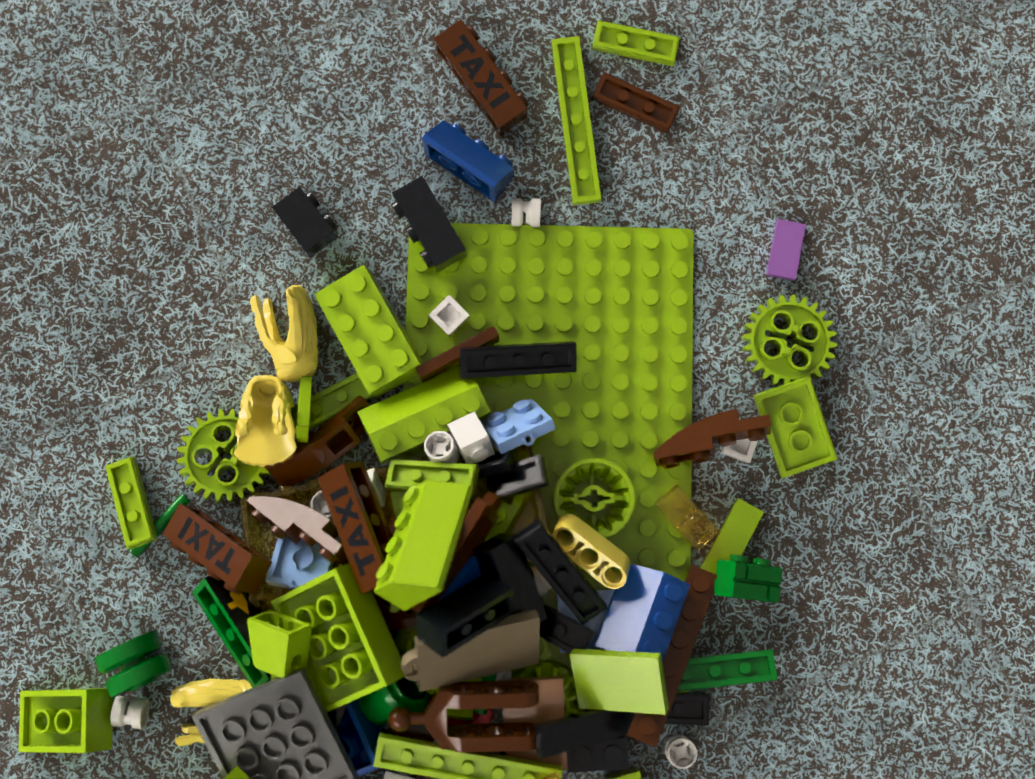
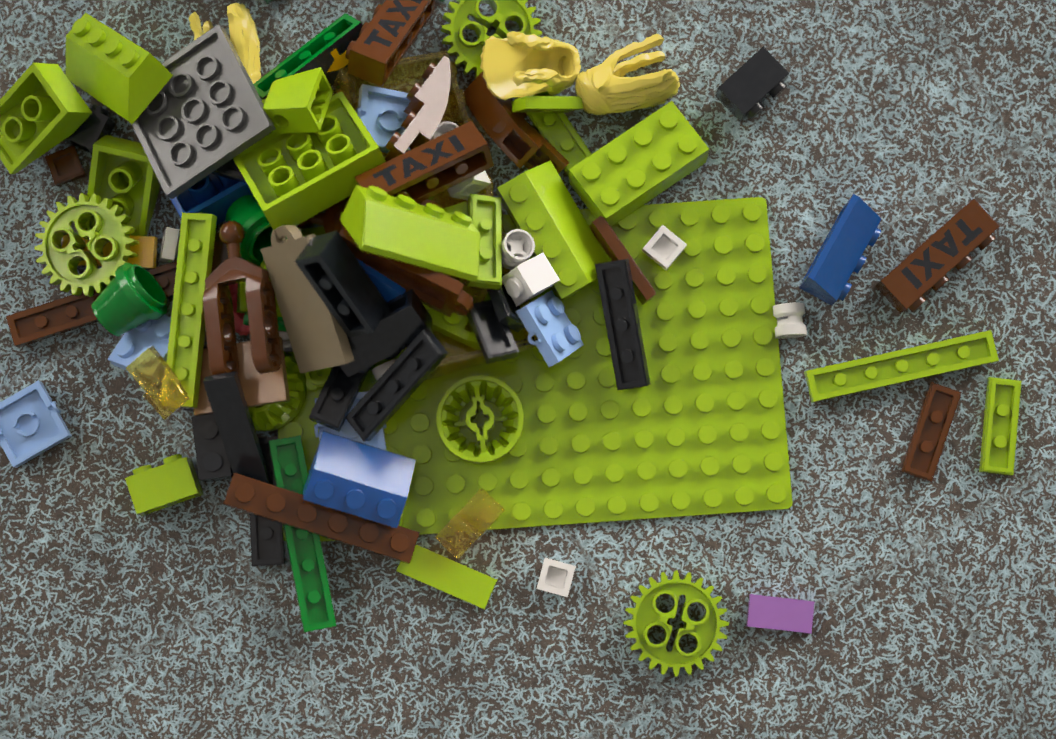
camera: 85 degrees right, 0 degrees up
(428, 225) = (762, 214): black brick -> none
(597, 564) = (417, 432): light yellow beam -> none
(619, 681) = (288, 458): lime tile -> none
(685, 754) = (218, 533): white wheel -> none
(697, 439) = (555, 528): reddish brown slope -> none
(748, 580) = (407, 594): green brick -> none
(798, 427) = (580, 636): lime tile -> none

